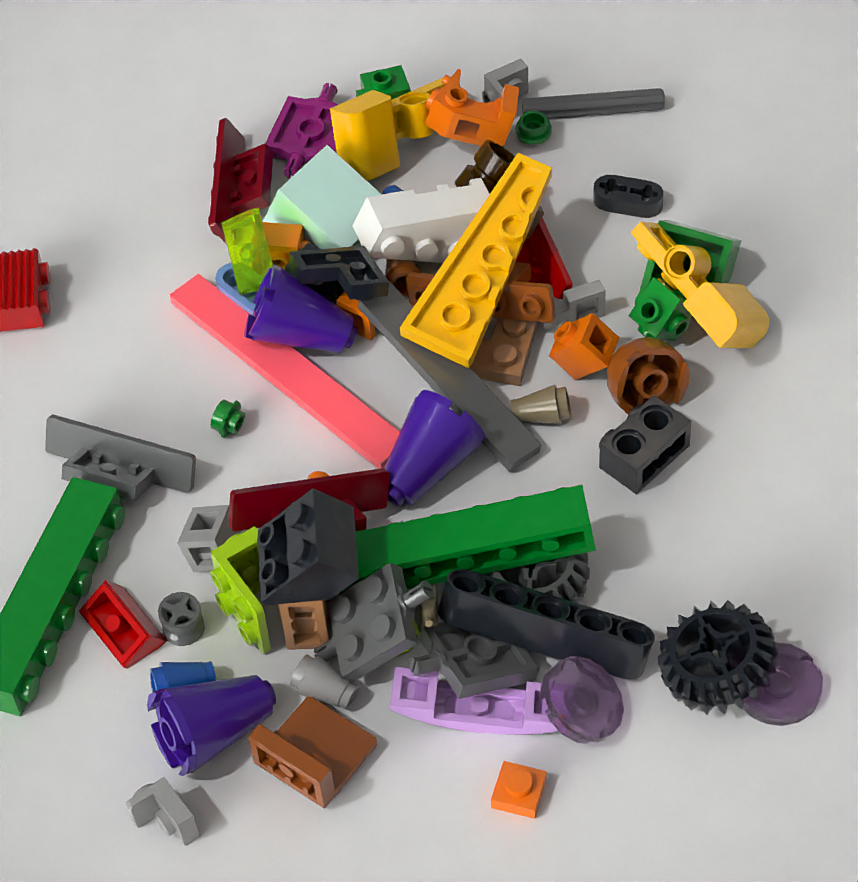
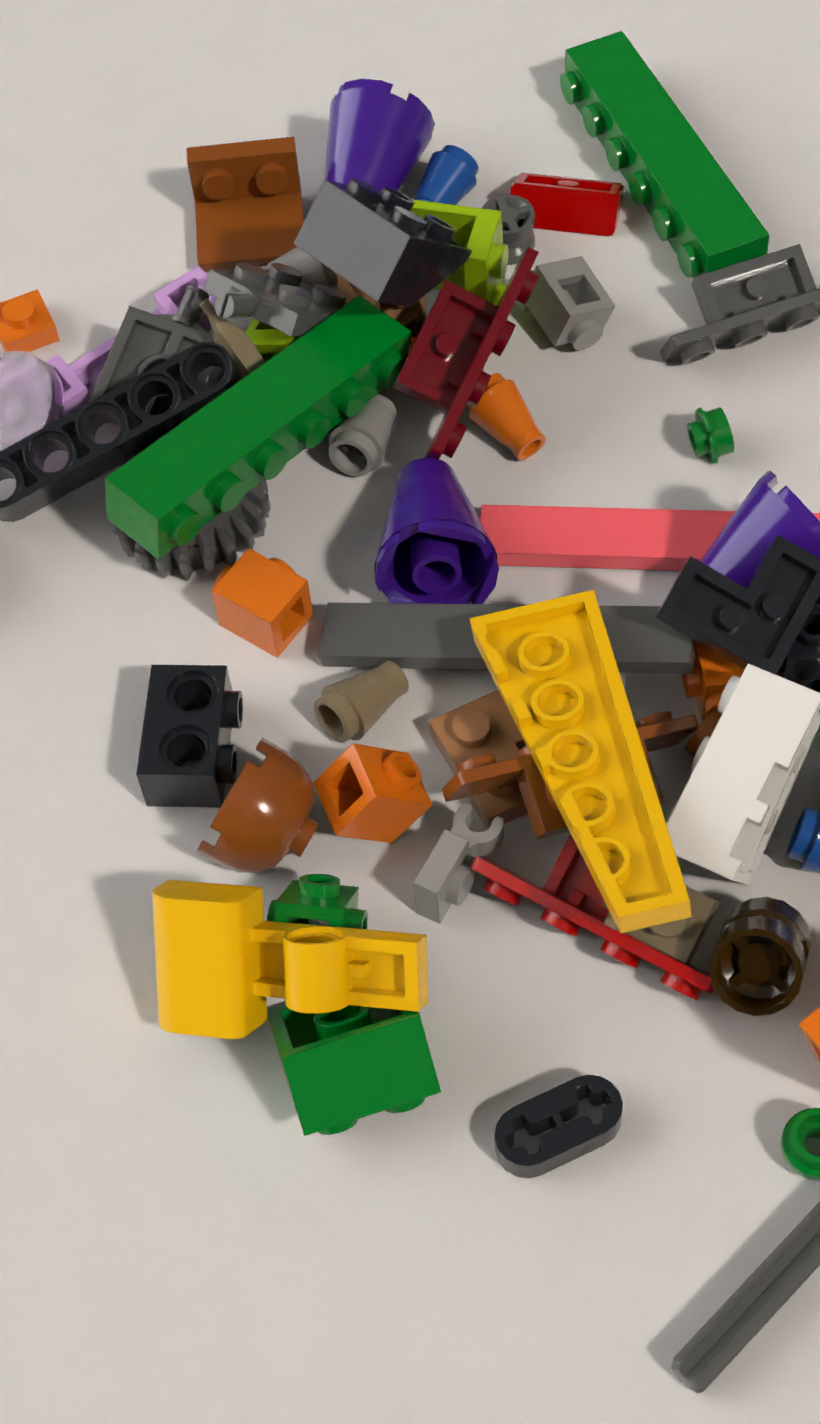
camera: 140 degrees right, 5 degrees up
(165, 805) = (314, 88): light grey bracket -> none
(540, 474) = (262, 601): none -> orange brick

